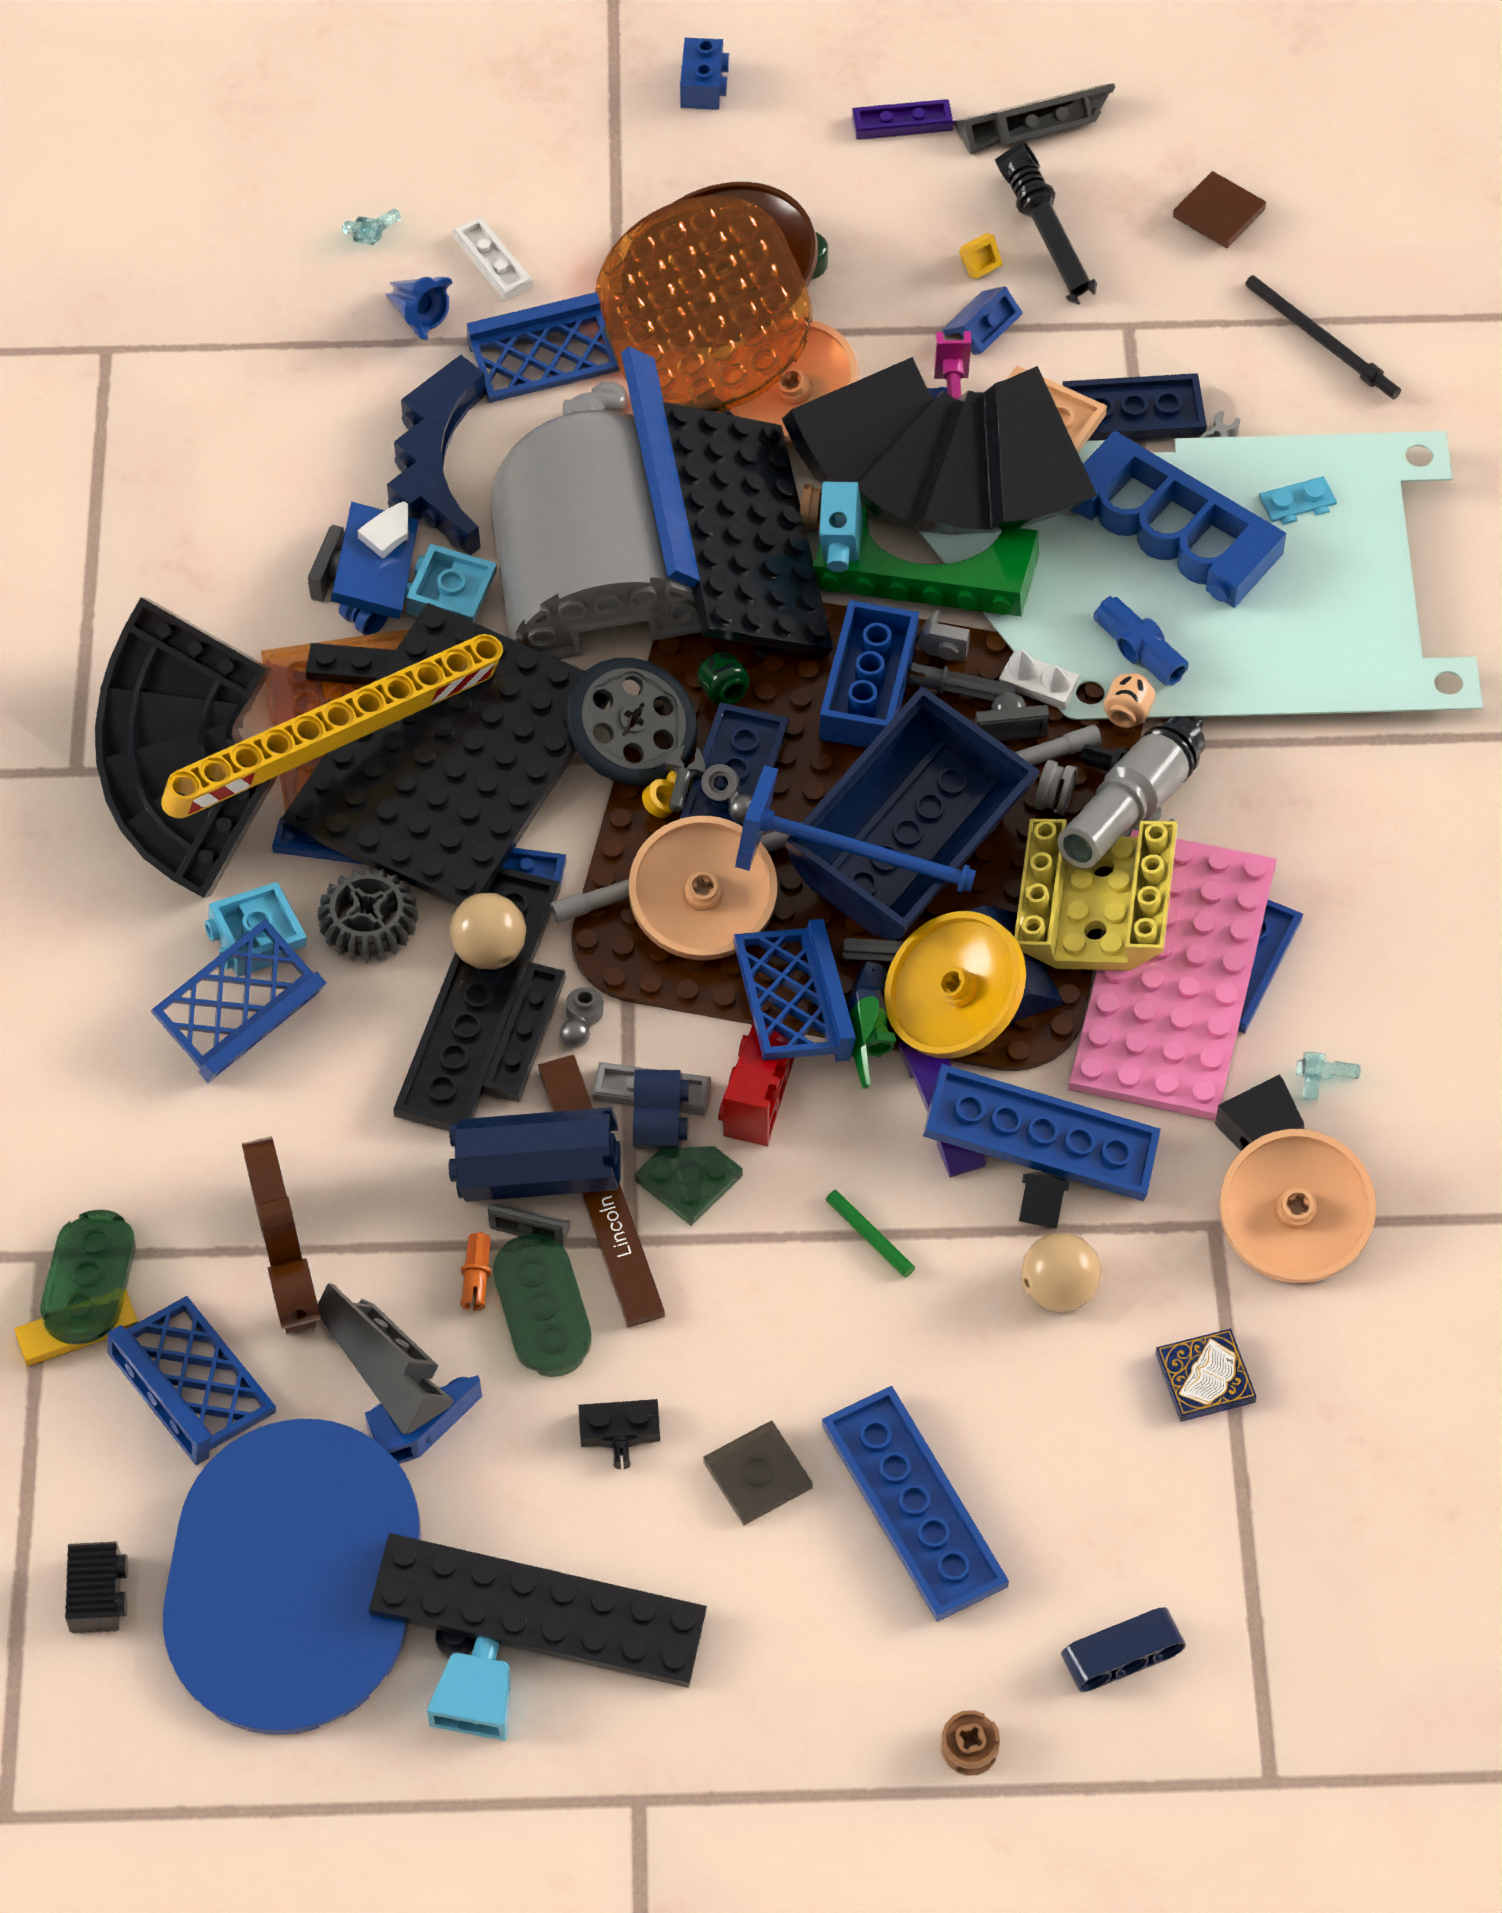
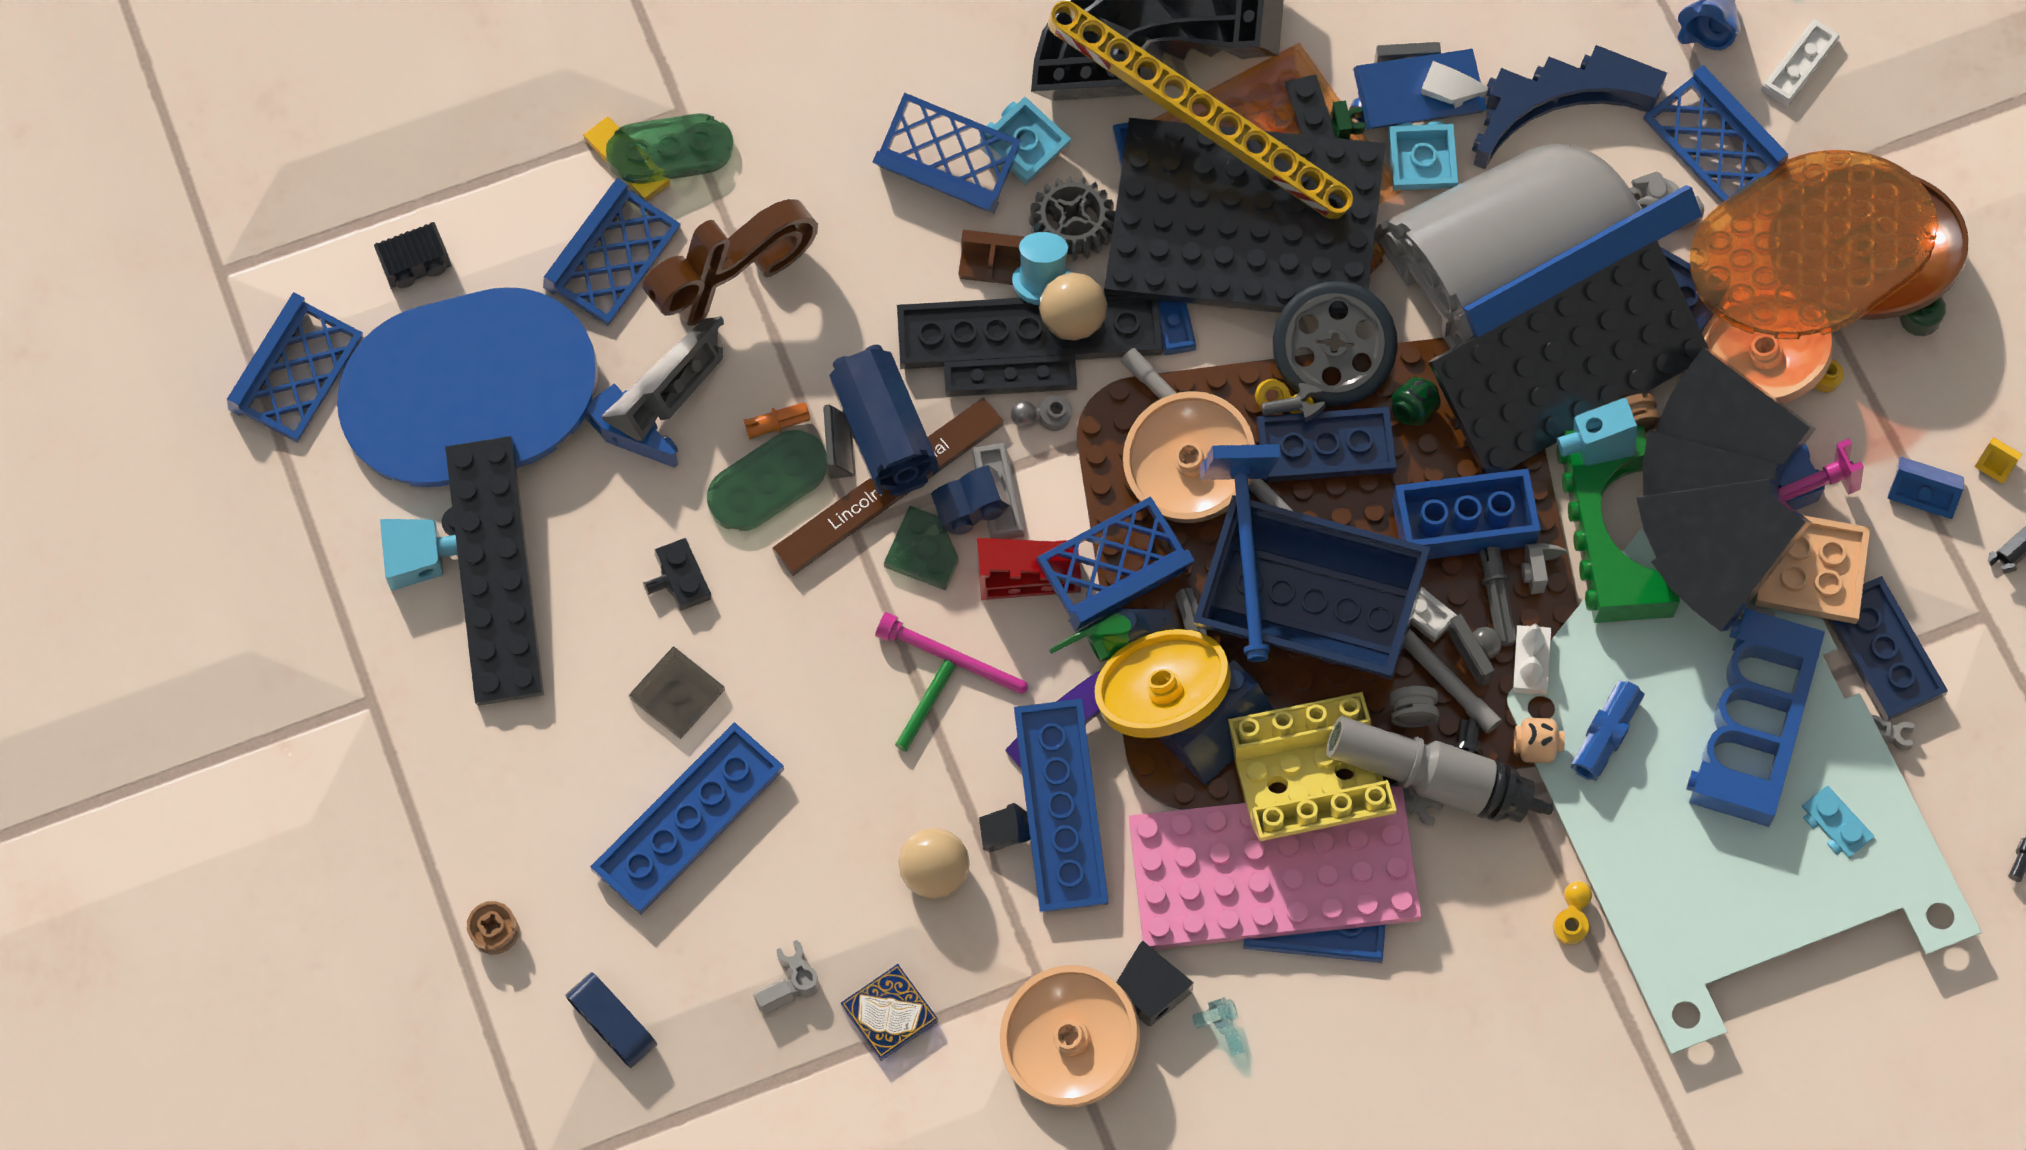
camera: 70 degrees right, 10 degrees up
(149, 1785) = (267, 358): none -> blue fence
(376, 1005) = (989, 256): none -> reddish brown panel
(378, 634) = (1342, 120): none -> dark green tile
(423, 955) = (1041, 262): none -> medium azure piece
(737, 803) = (1288, 436): flat silver plate -> none
(770, 1236) = (892, 629): none -> dark pink piece
(1144, 1447) = (802, 982): none -> light grey bar
(1295, 731) = (1577, 897): none -> yellow plate

